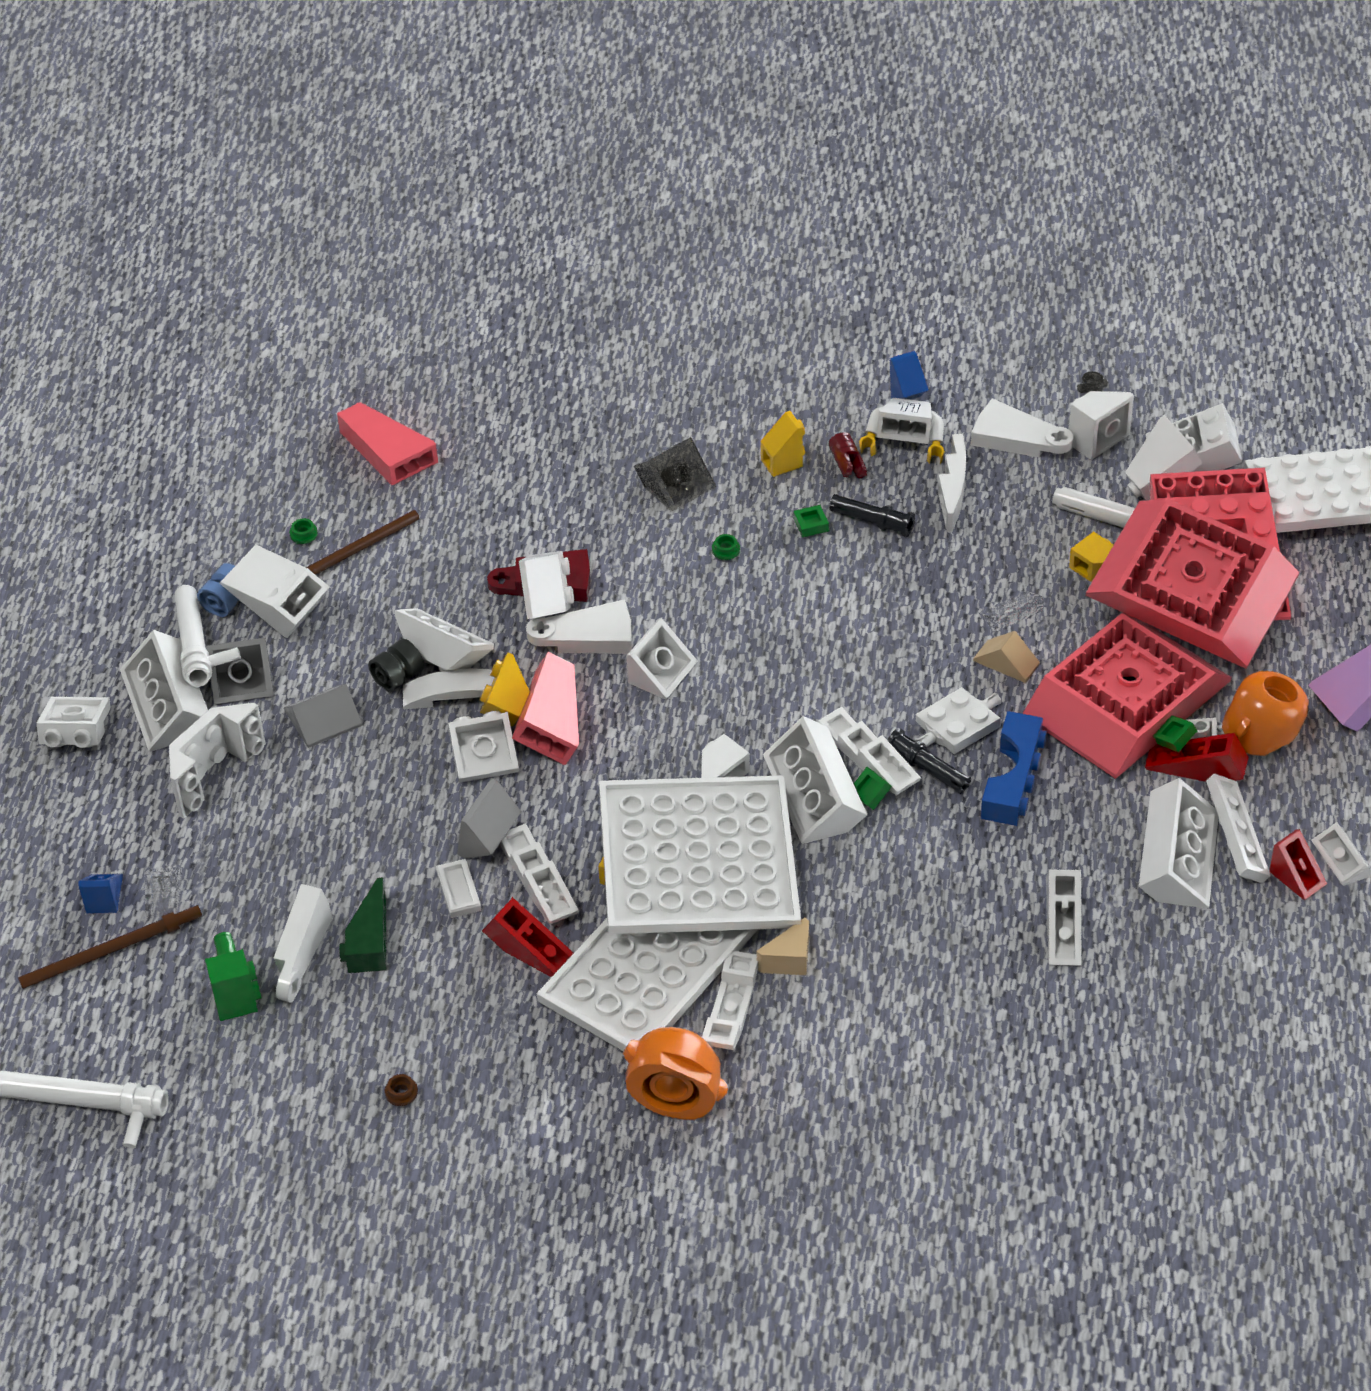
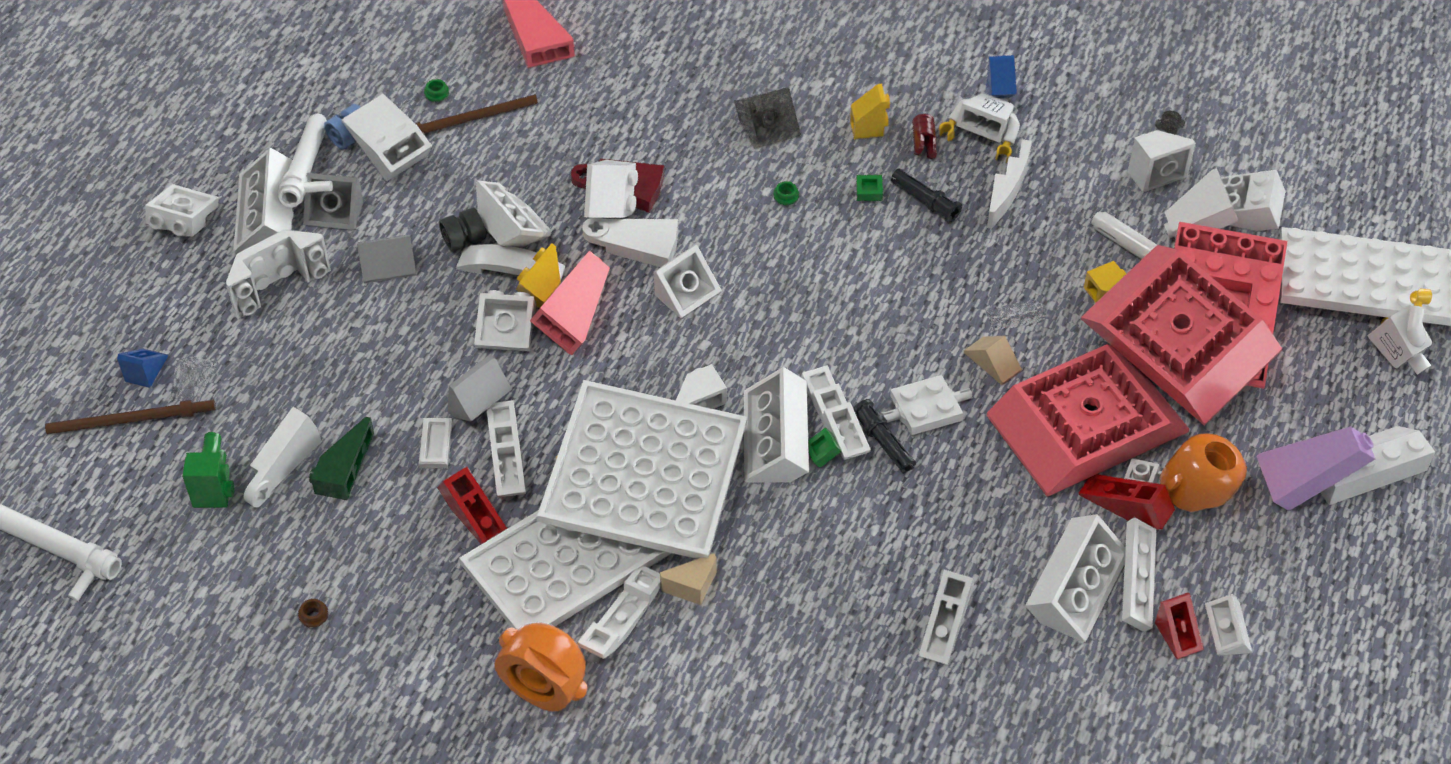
camera: 15 degrees right, 5 degrees up
(1005, 794) = (940, 487): blue arch -> none
(1017, 432) = (1084, 150): white piece -> none
(1175, 733) = (1113, 470): green plate -> none

